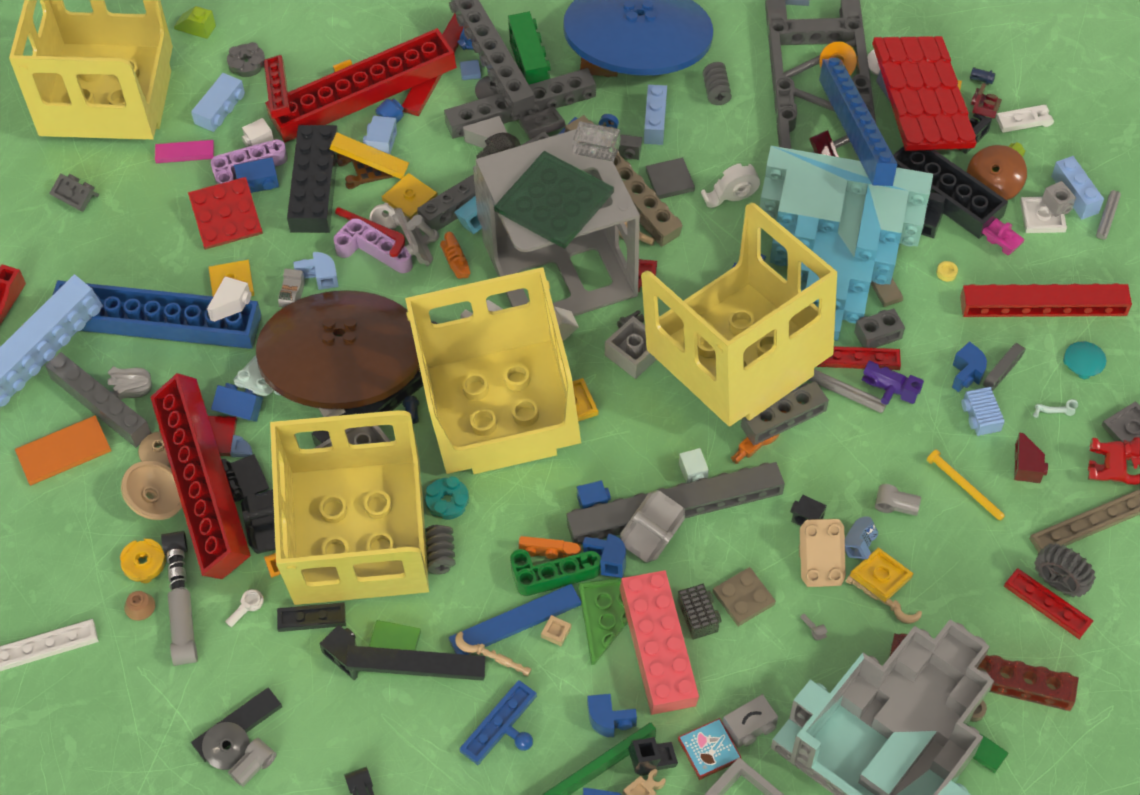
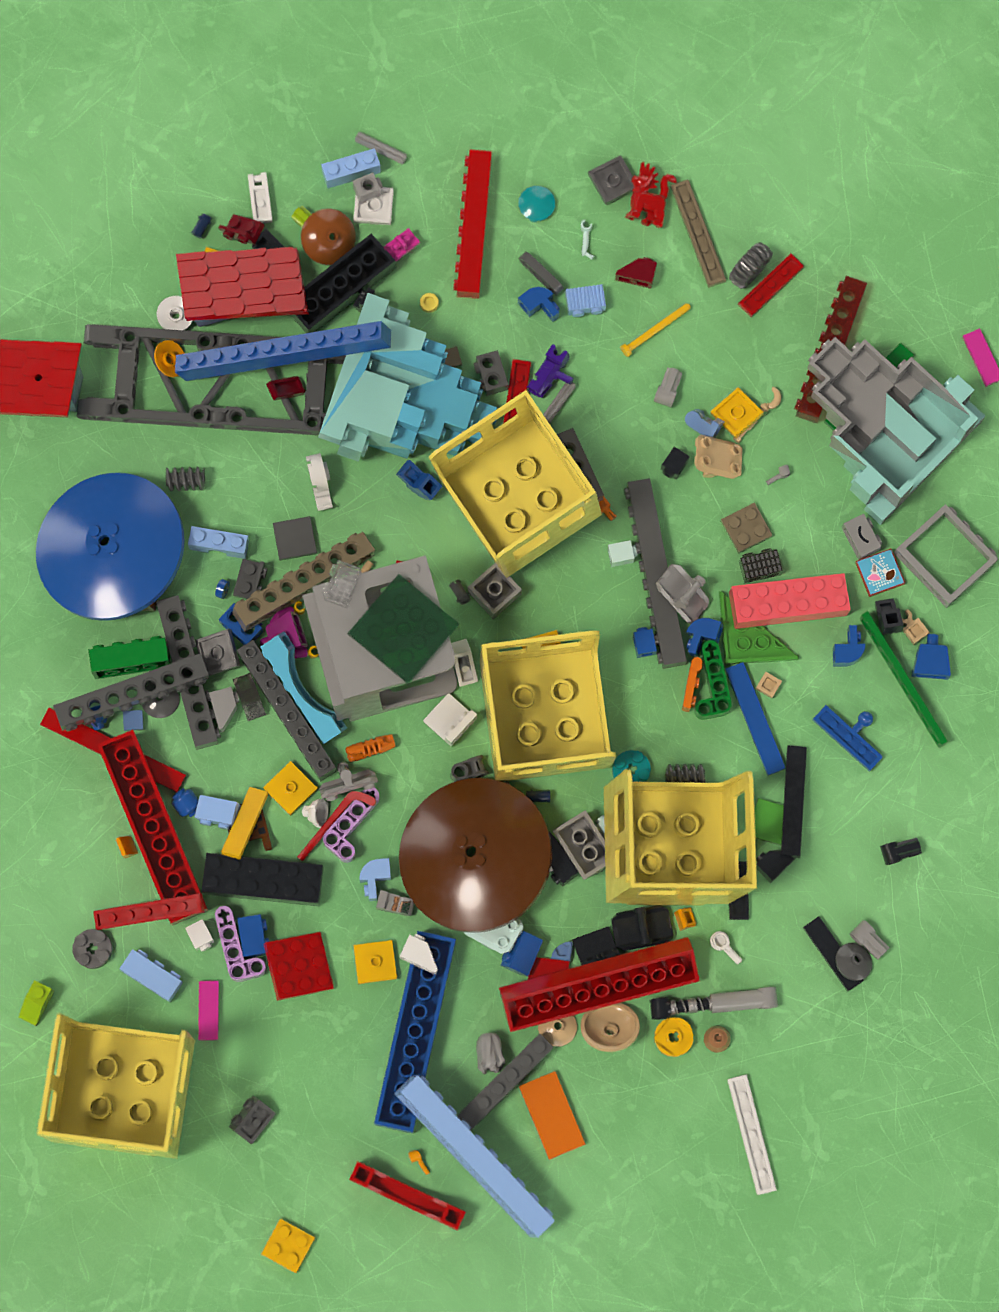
camera: 90 degrees left, 20 degrees up
(499, 658) = (782, 747): tan piece -> none

